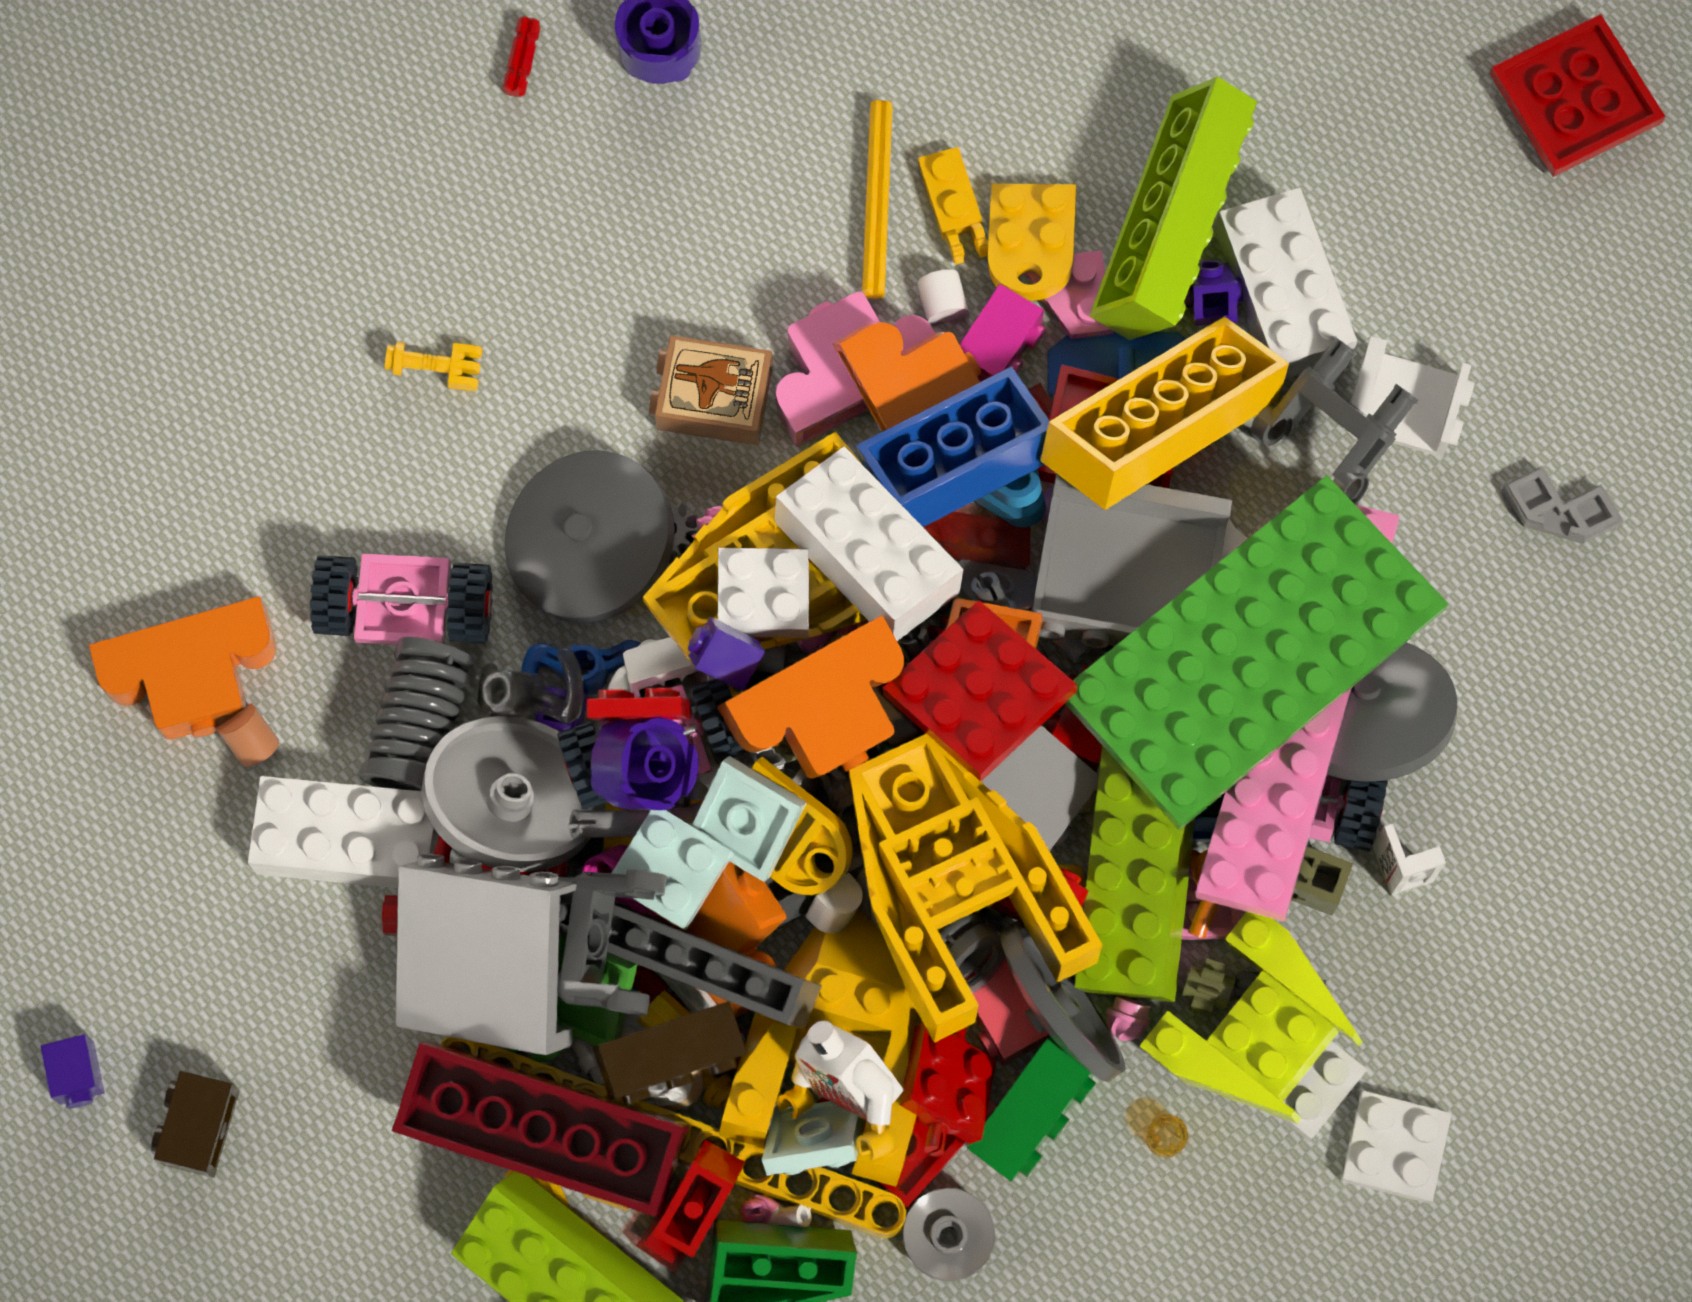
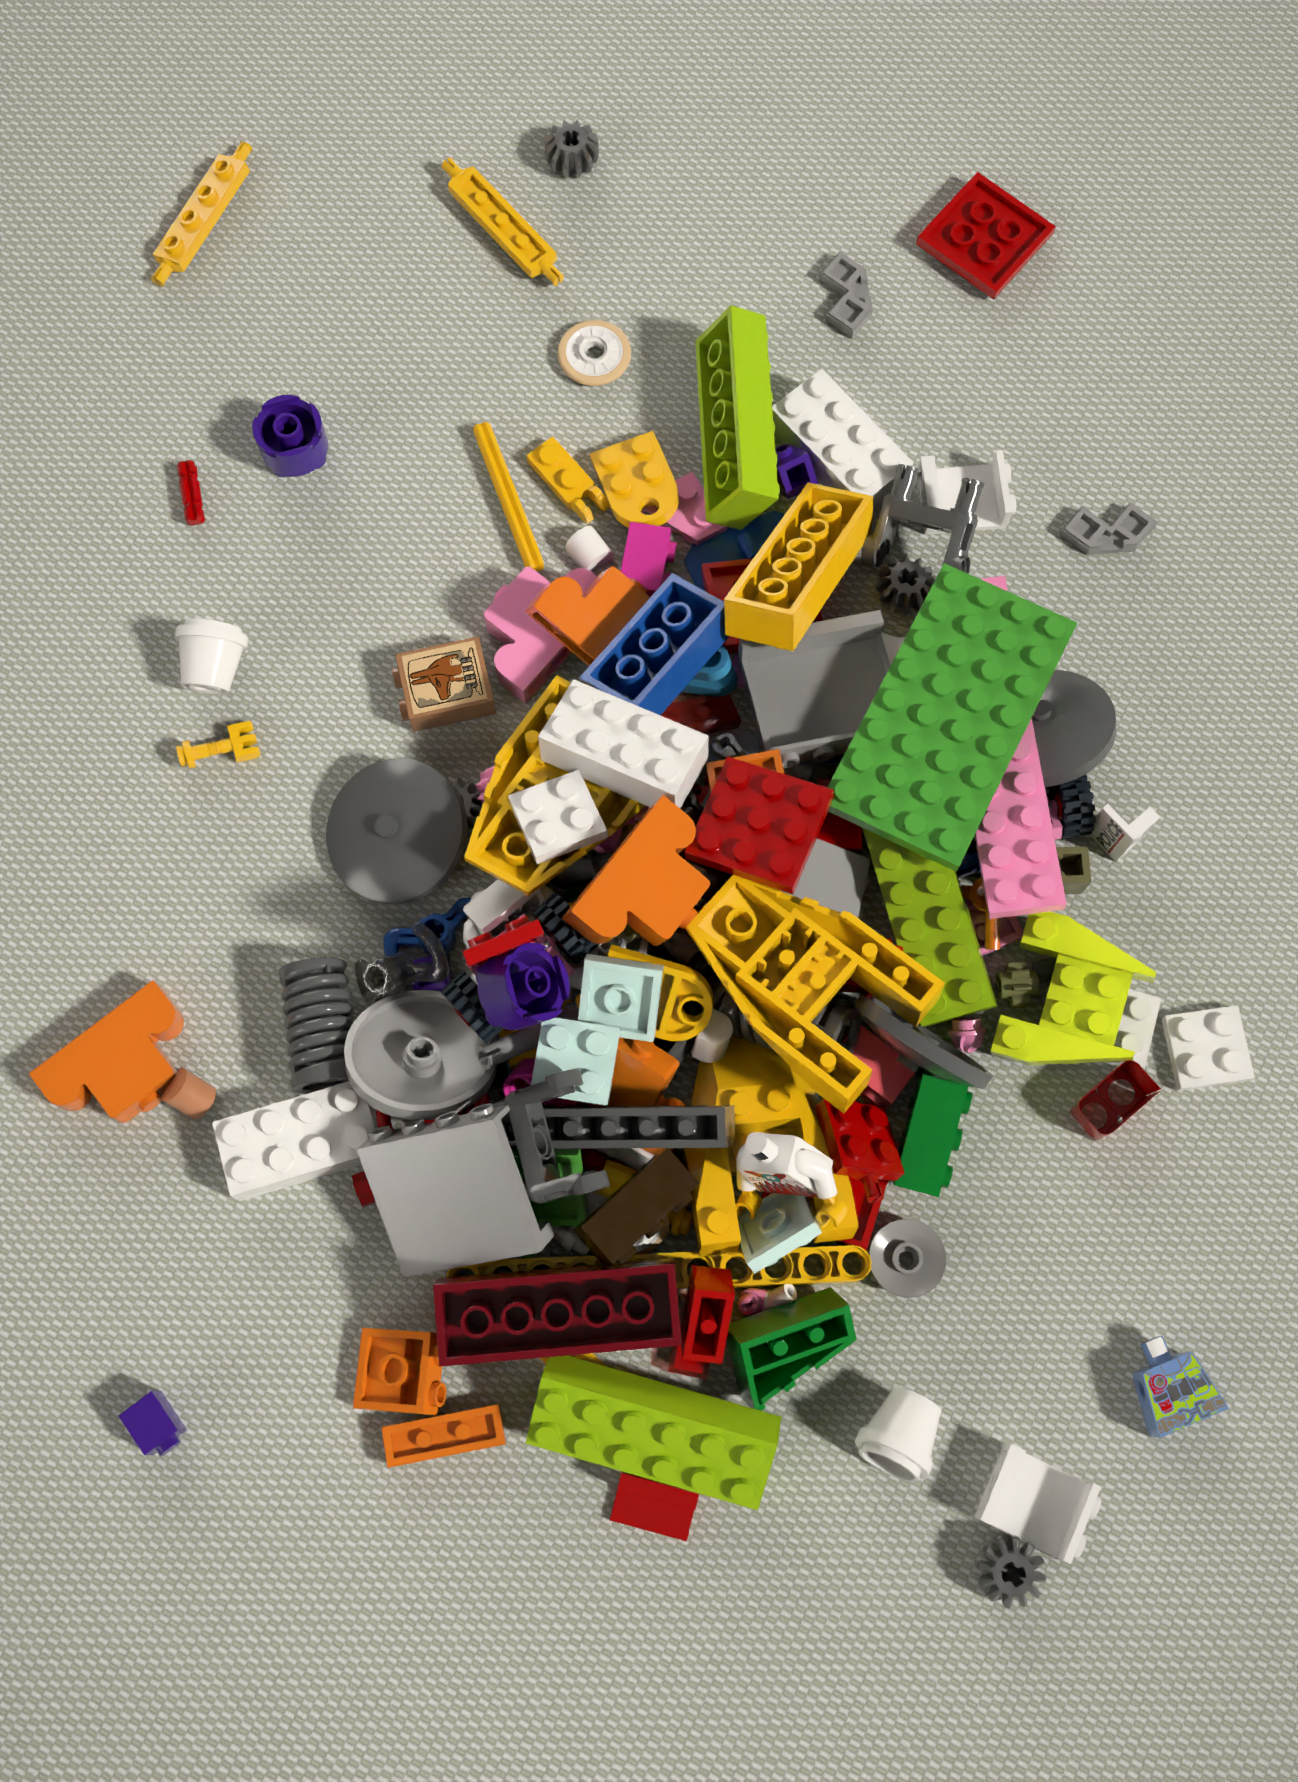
camera: 25 degrees left, 0 degrees up
(195, 1123) = (272, 1424): dark brown brick -> none
(349, 1125) = (399, 1372): none -> orange plate
(369, 1212) = (443, 1435): none -> orange plate
(401, 598) = (267, 937): plate -> none
(465, 255) = (209, 654): none -> white piece
(725, 653) = (551, 874): dark purple brick -> none
(1049, 40) = (588, 370): none -> wheel
(1153, 1139) = (1043, 1103): clear yellow bush -> none
(1283, 1130) = (1142, 1085): none -> red piece
(1290, 463) = (909, 575): none -> flat silver gear
(1390, 91) = (850, 282): none -> light grey tile

